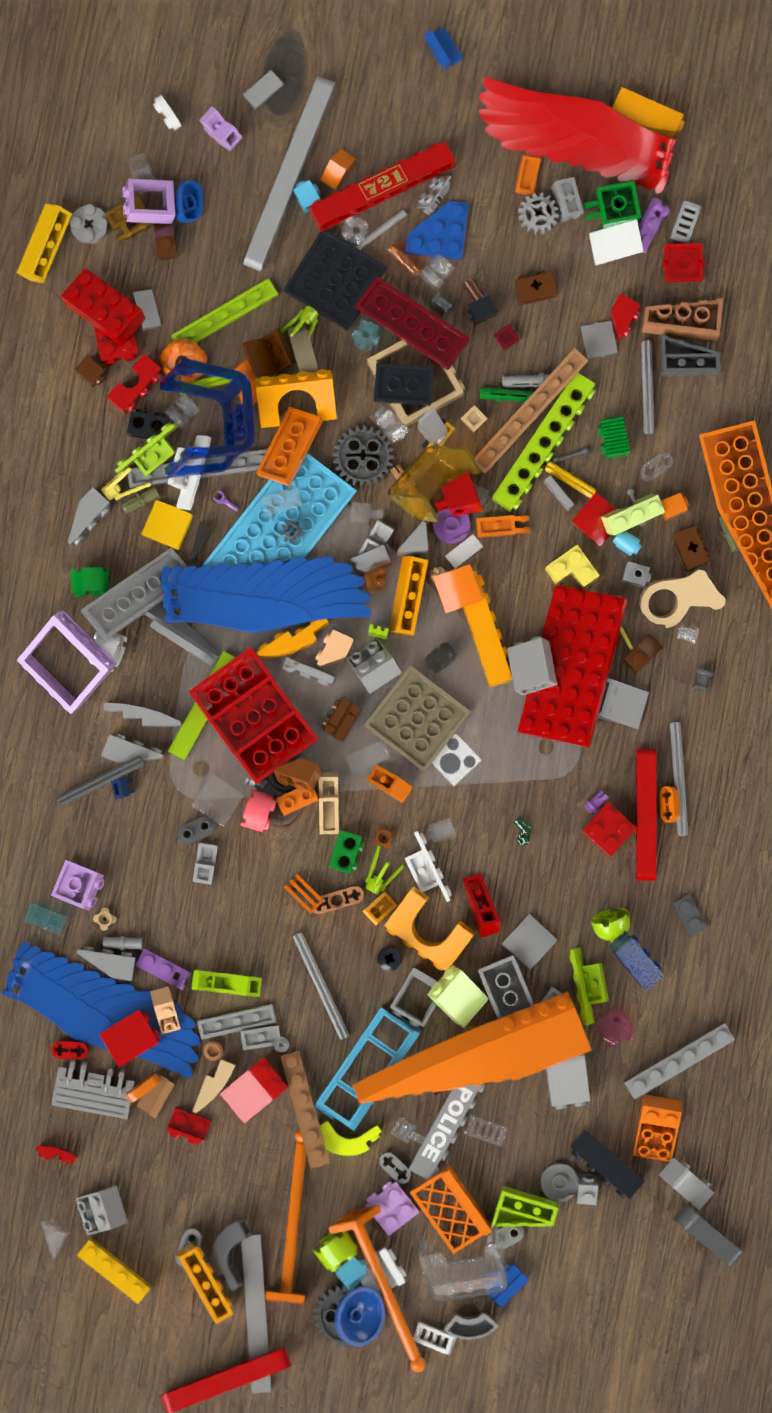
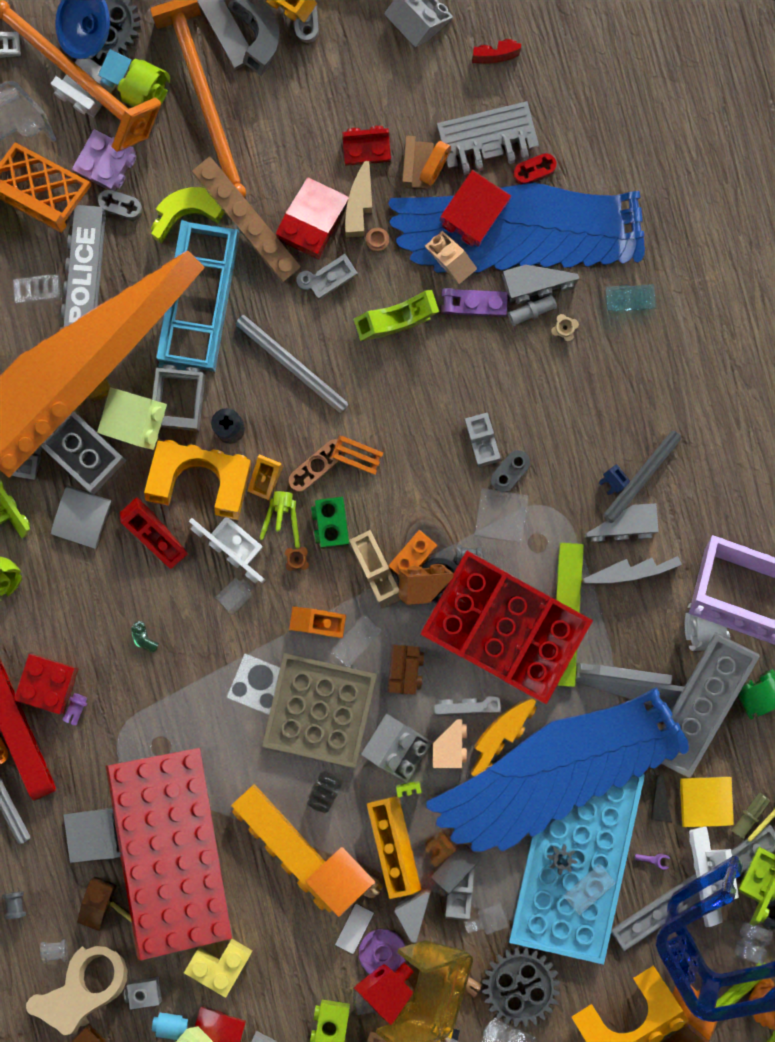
camera: 160 degrees right, 0 degrees up
(78, 885) = (611, 349): lavender plate -> none
(236, 1021) = (366, 283): light grey tile -> none
(257, 811) = (451, 522): coral brick -> none
(289, 446) = (610, 959): orange plate -> none
(405, 1131) = (126, 247): clear plate -> none
(500, 526) = (325, 977): orange hinge -> none
(532, 666) = (215, 831): light grey brick -> none

